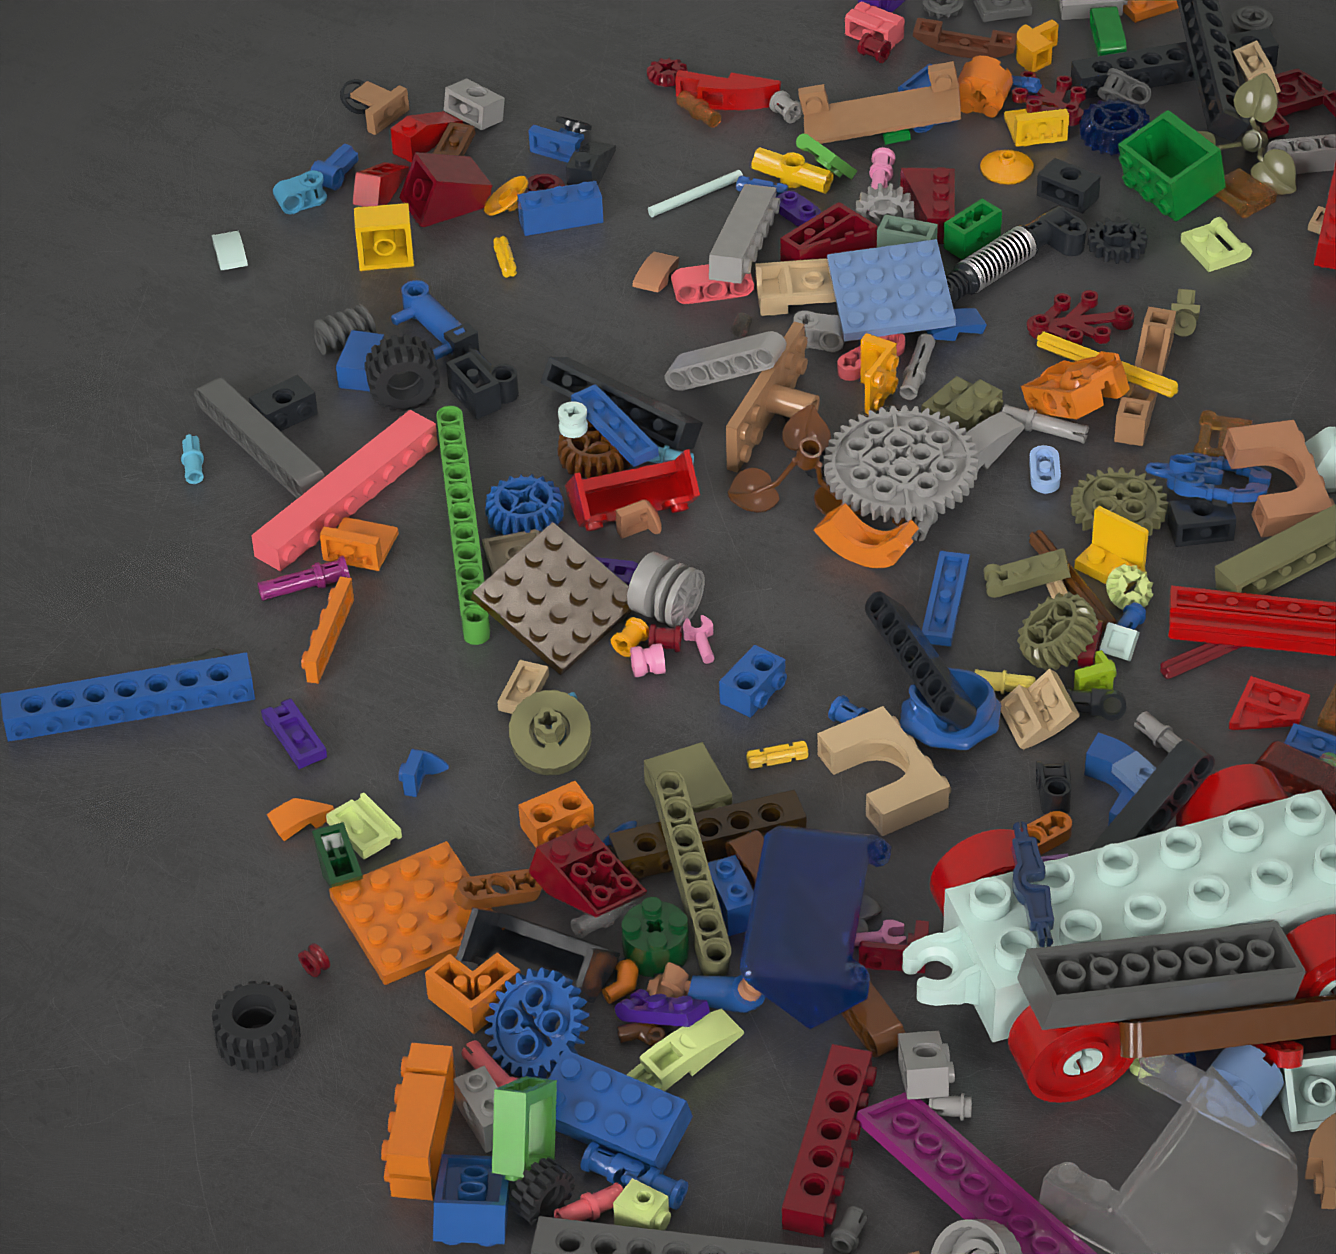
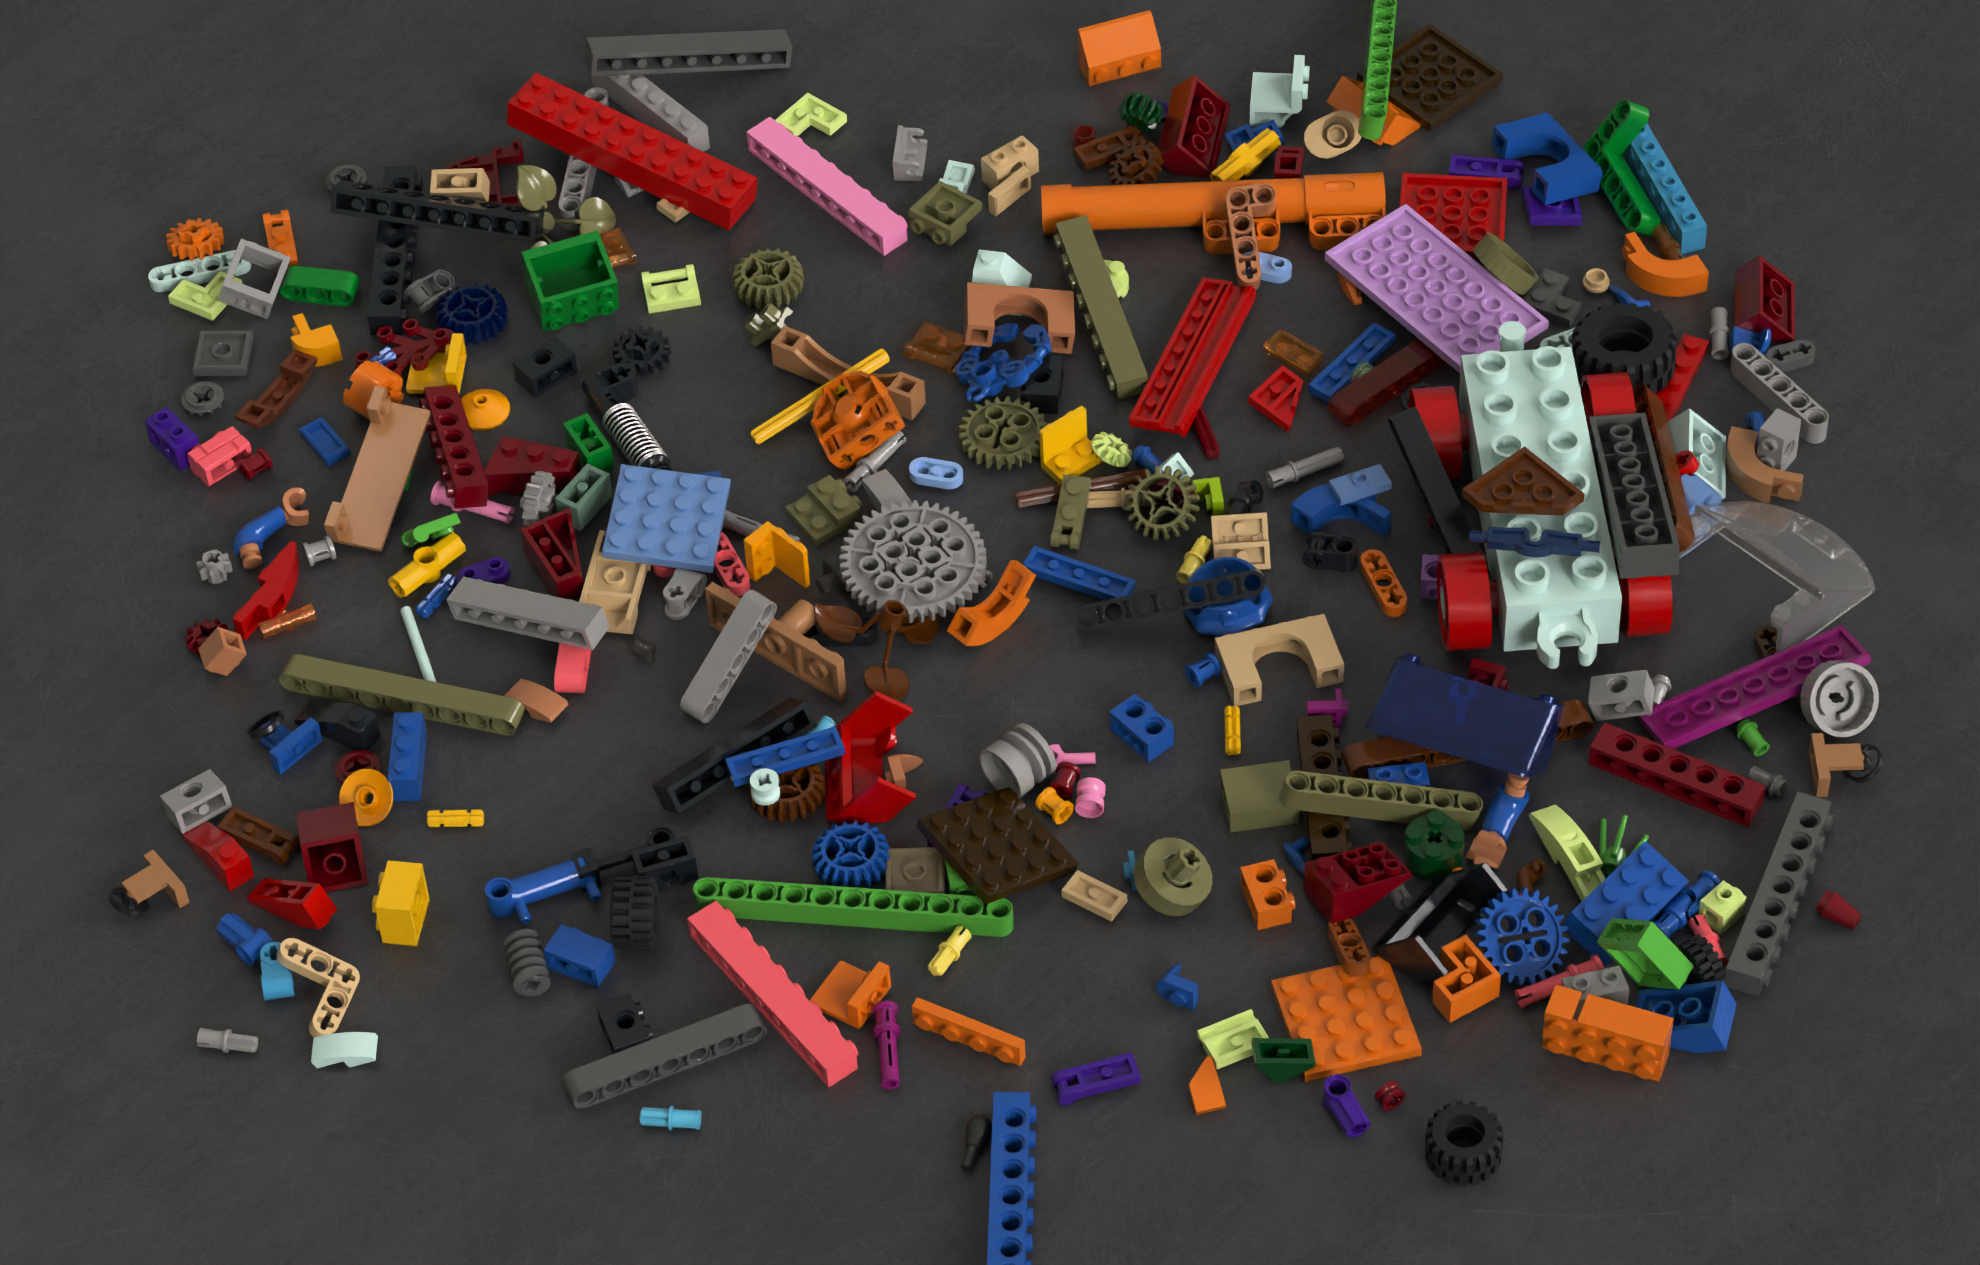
camera: 75 degrees left, 5 degrees up
(225, 184) = (226, 1040): none -> light grey axle
(294, 226) = (333, 984): none -> tan beam
(301, 920) = (1345, 1106): none -> dark purple piece
(426, 599) = (949, 951): none -> light yellow axle
(634, 193) = (402, 694): none -> olive beam
(643, 77) = (222, 651): none -> nougat brick
(661, 1009) = (1523, 850): dark purple plate -> none
(693, 1097) = (1614, 854): none -> bright green plant
(744, 53) = (214, 566): none -> light grey gear
(790, 65) = (250, 537): none -> piece
(820, 816) = (1335, 708): none -> magenta bracket
(918, 1201) = (1748, 732): none -> bright green pin
(933, 146) = (454, 447): none -> dark red brick
(1078, 323) = (737, 431): dark red plant -> none
(1107, 857) = (1523, 487): none -> reddish brown plate
(1255, 300) = (768, 278): none -> olive gear

